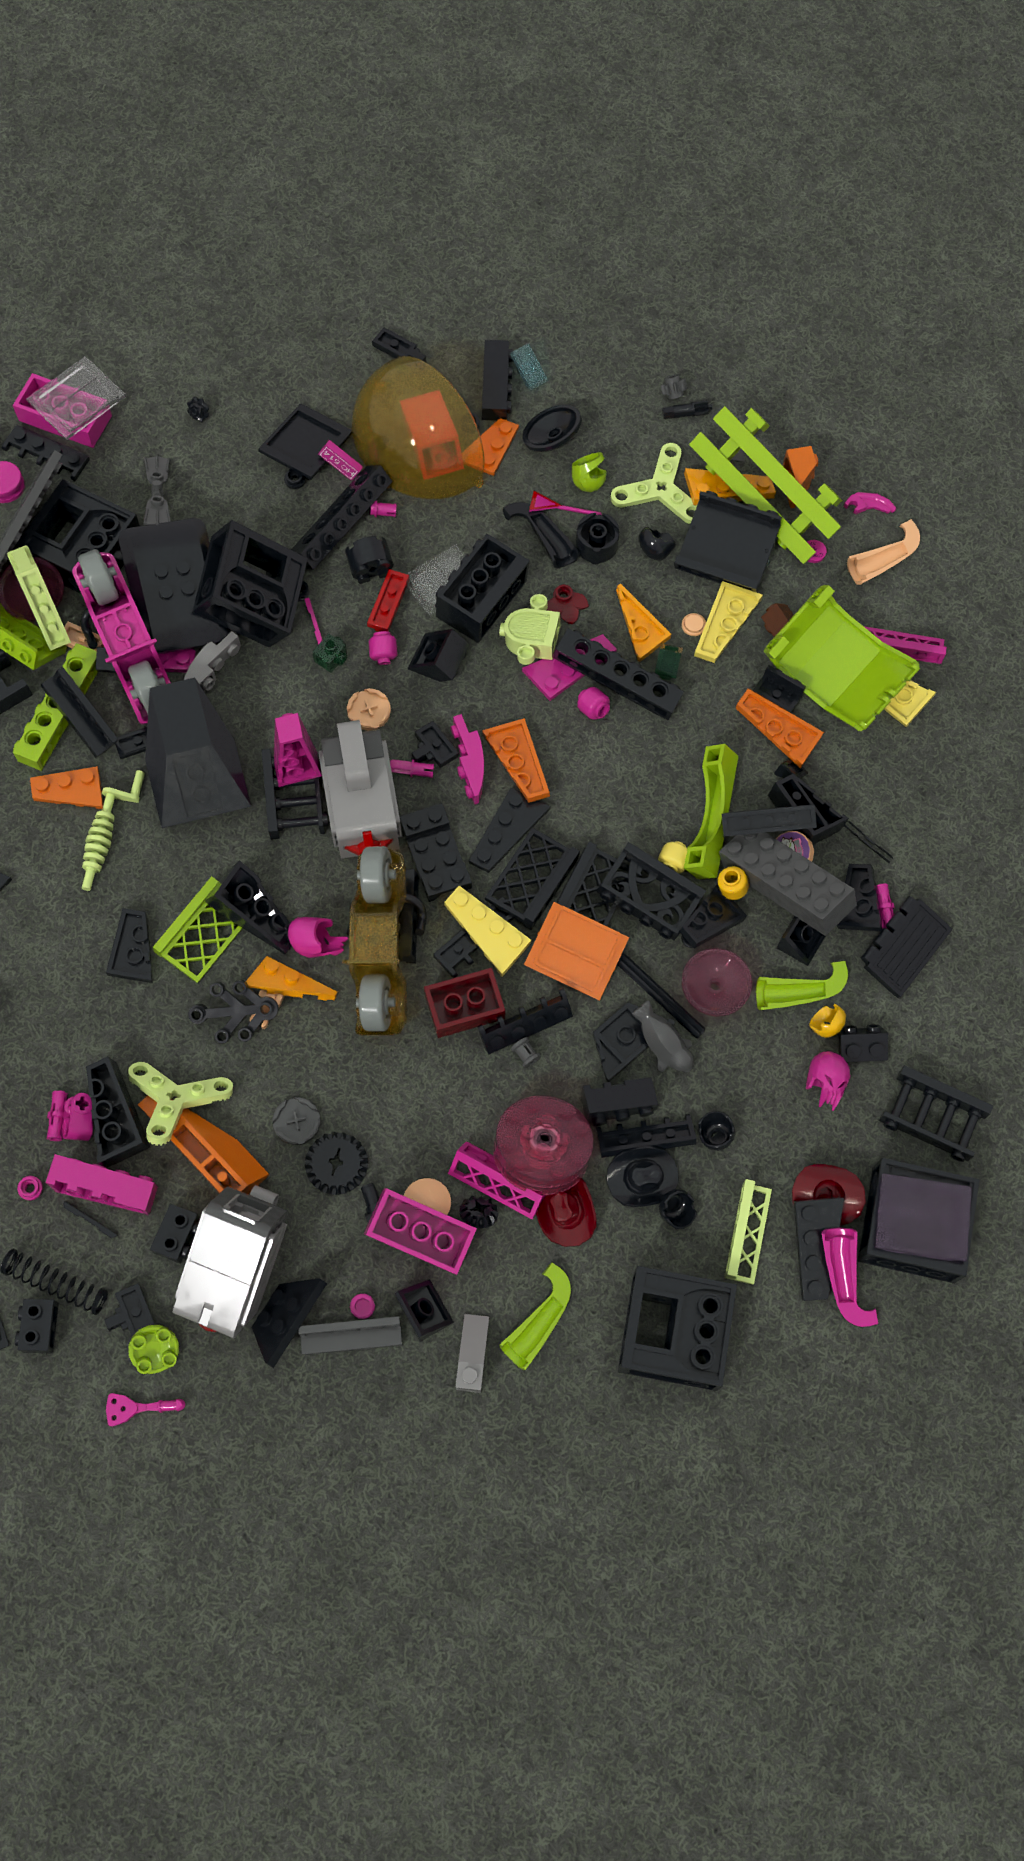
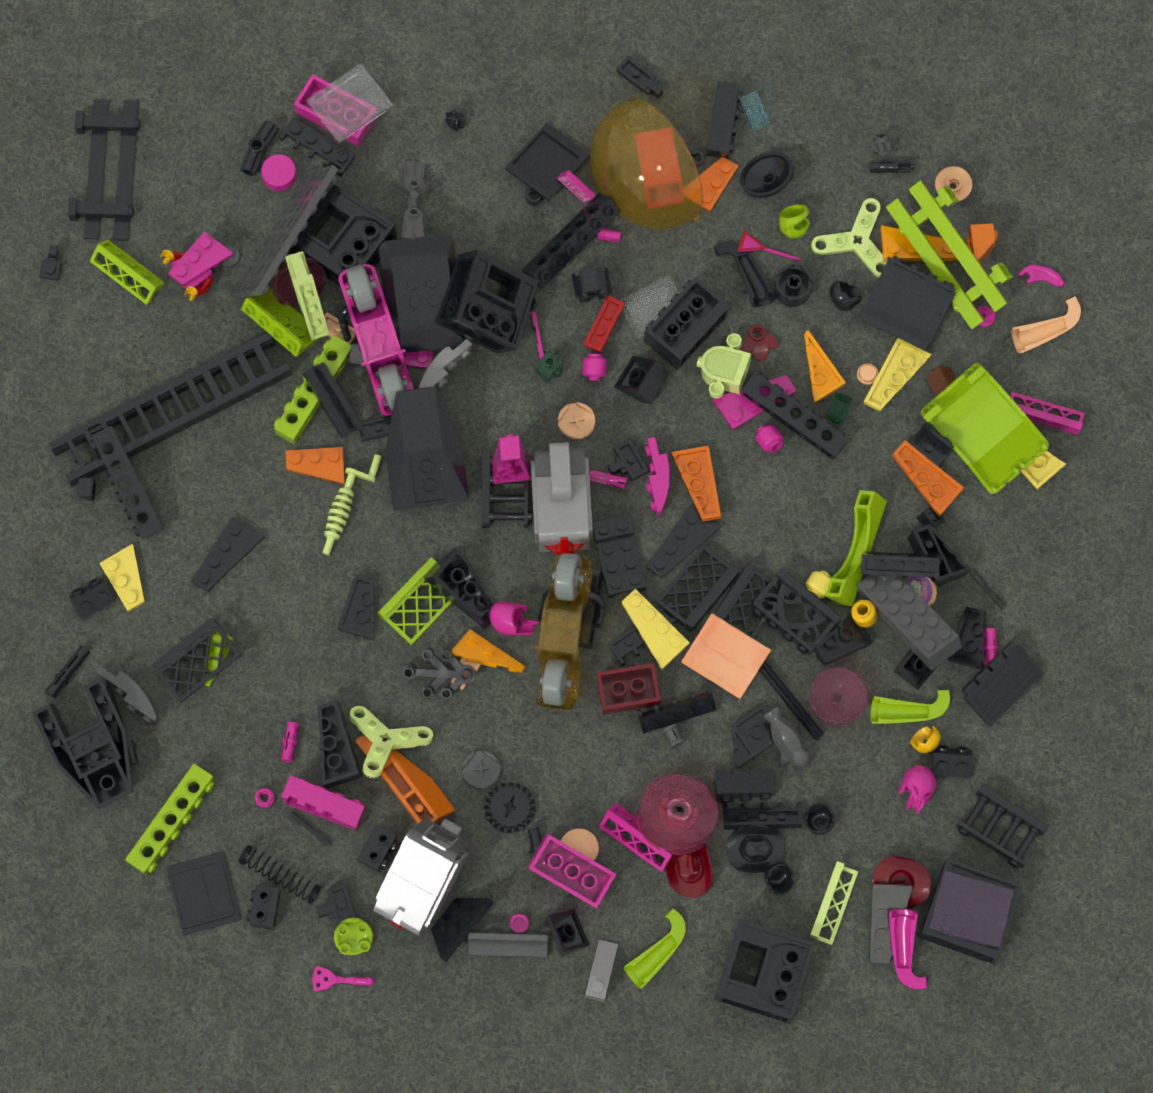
camera: 10 degrees right, 5 degrees up
(77, 1121) = (307, 747): dark pink piece -> none
(475, 1218) = (615, 865): black gear -> none
(766, 411) = (955, 176): none -> light nougat dish

